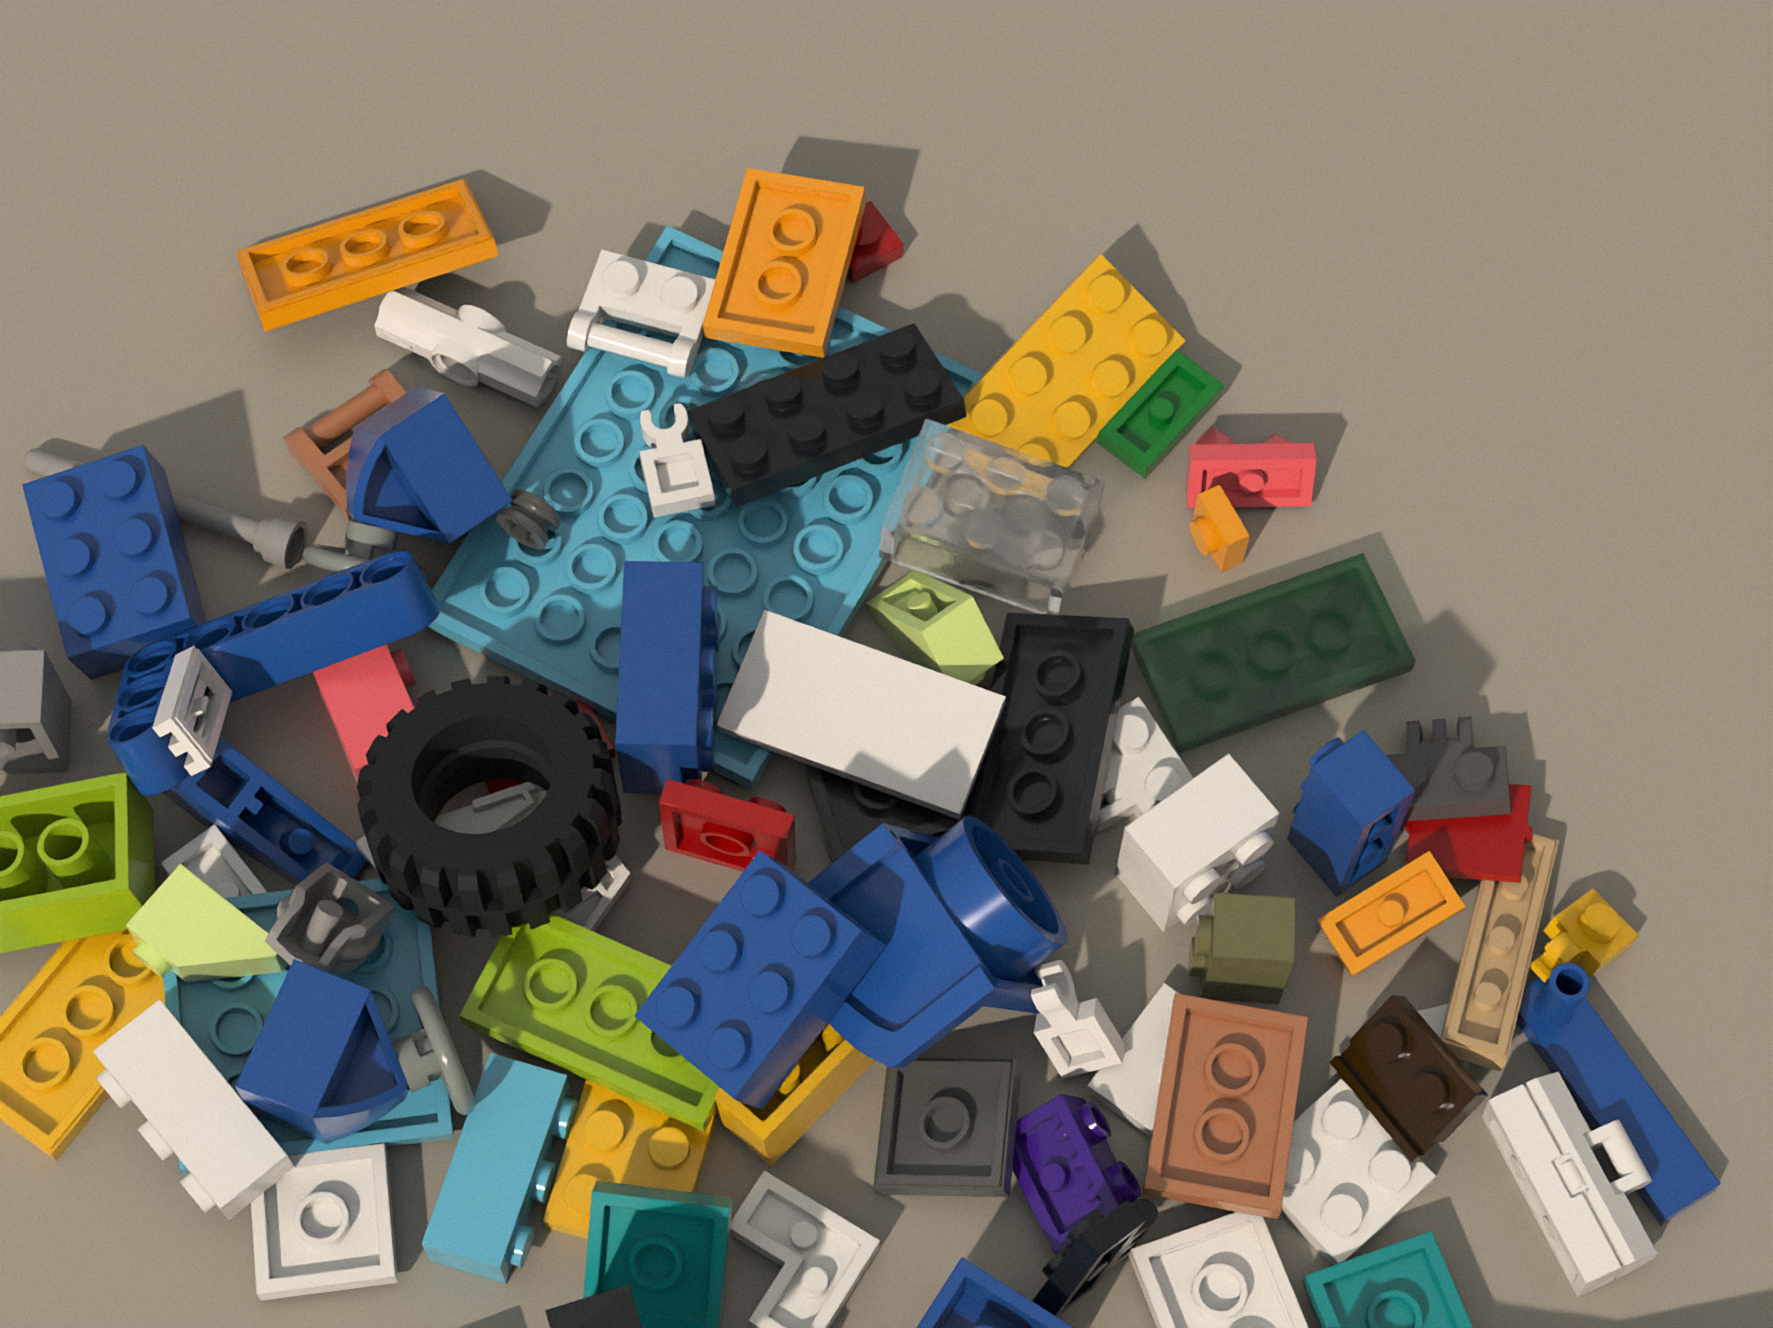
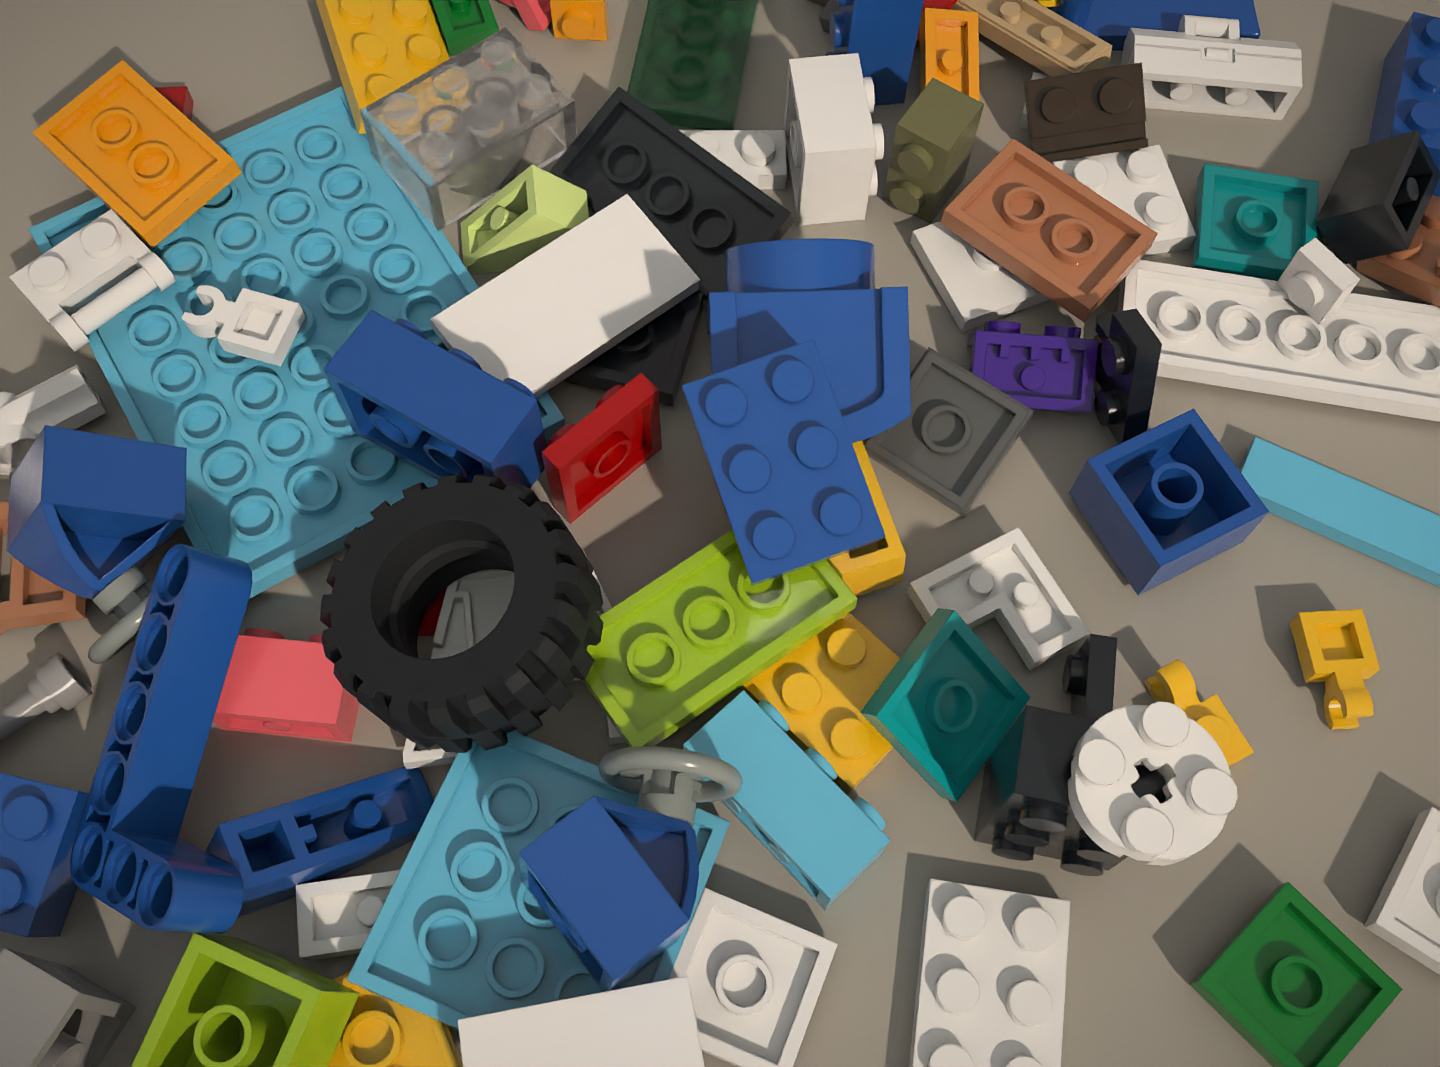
camera: 60 degrees left, 0 degrees up
(184, 701) = (181, 834): white tile -> none
(199, 934) = (408, 946): yellowish green slope -> none
(321, 929) = (490, 823): light grey hand -> none
(529, 519) = (210, 456): dark grey bush -> none
(825, 414) = (292, 194): black plate -> none
(1073, 1033) = (931, 296): white plate -> none

